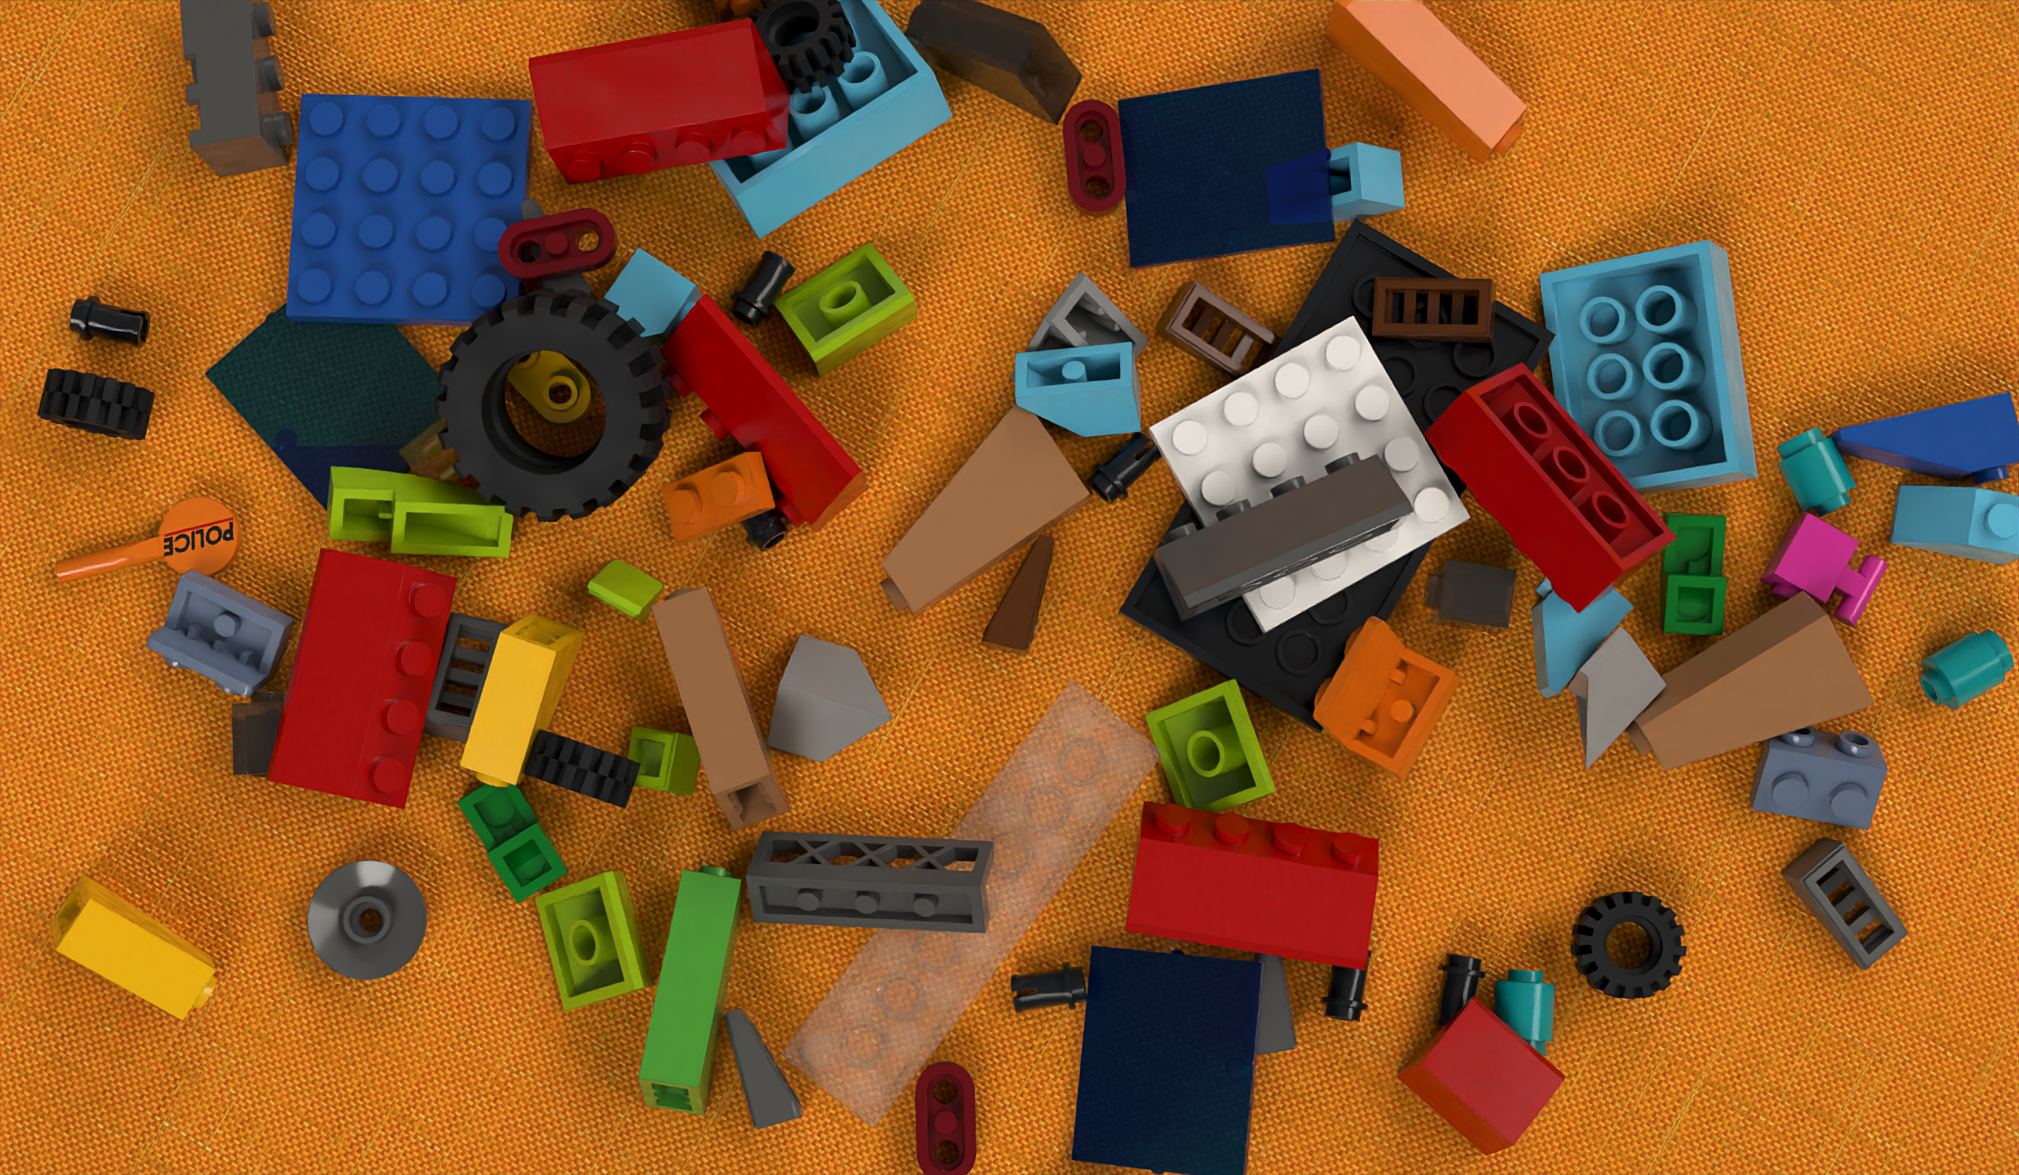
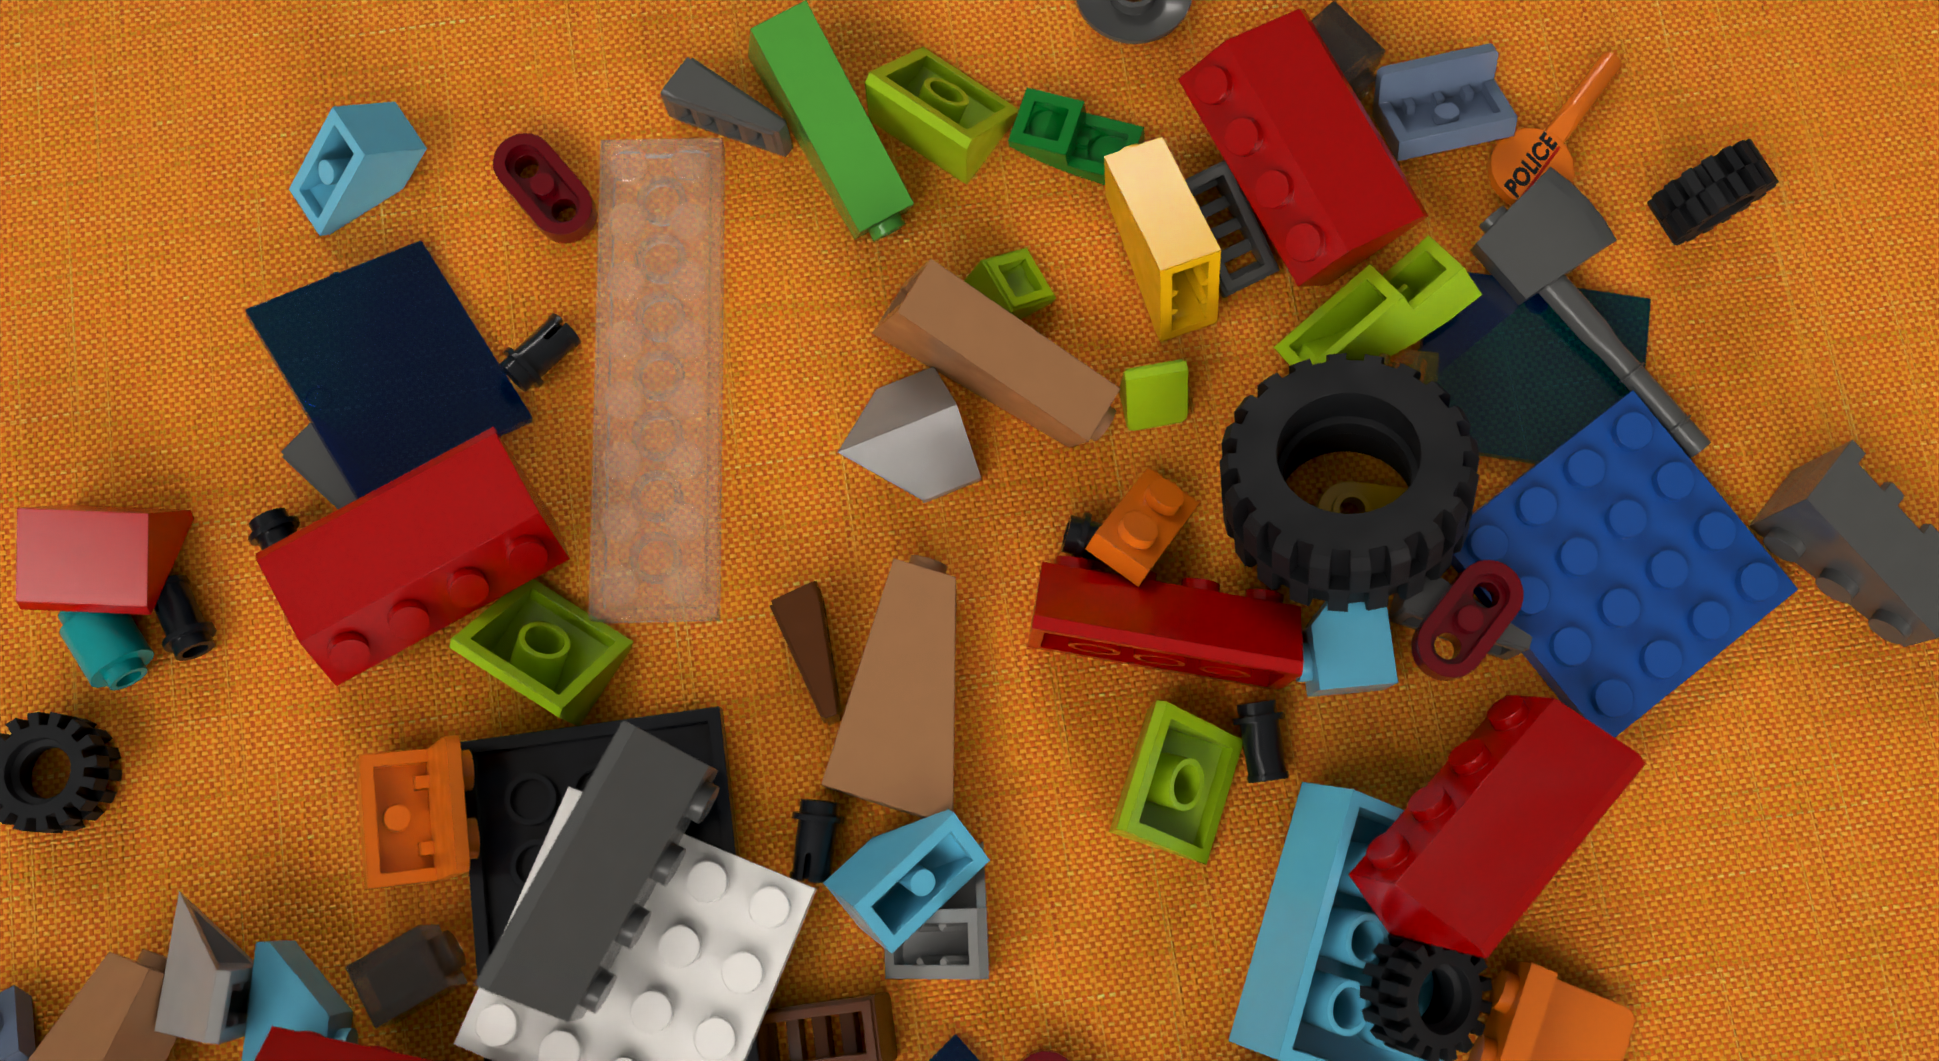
camera: 140 degrees right, 5 degrees down
(109, 322) = (1777, 268): black pin -> none
(259, 471) = (1534, 250): none -> dark grey piece
(582, 768) = (1063, 218): black tyre -> none
(867, 889) = (739, 301): dark grey fence -> none

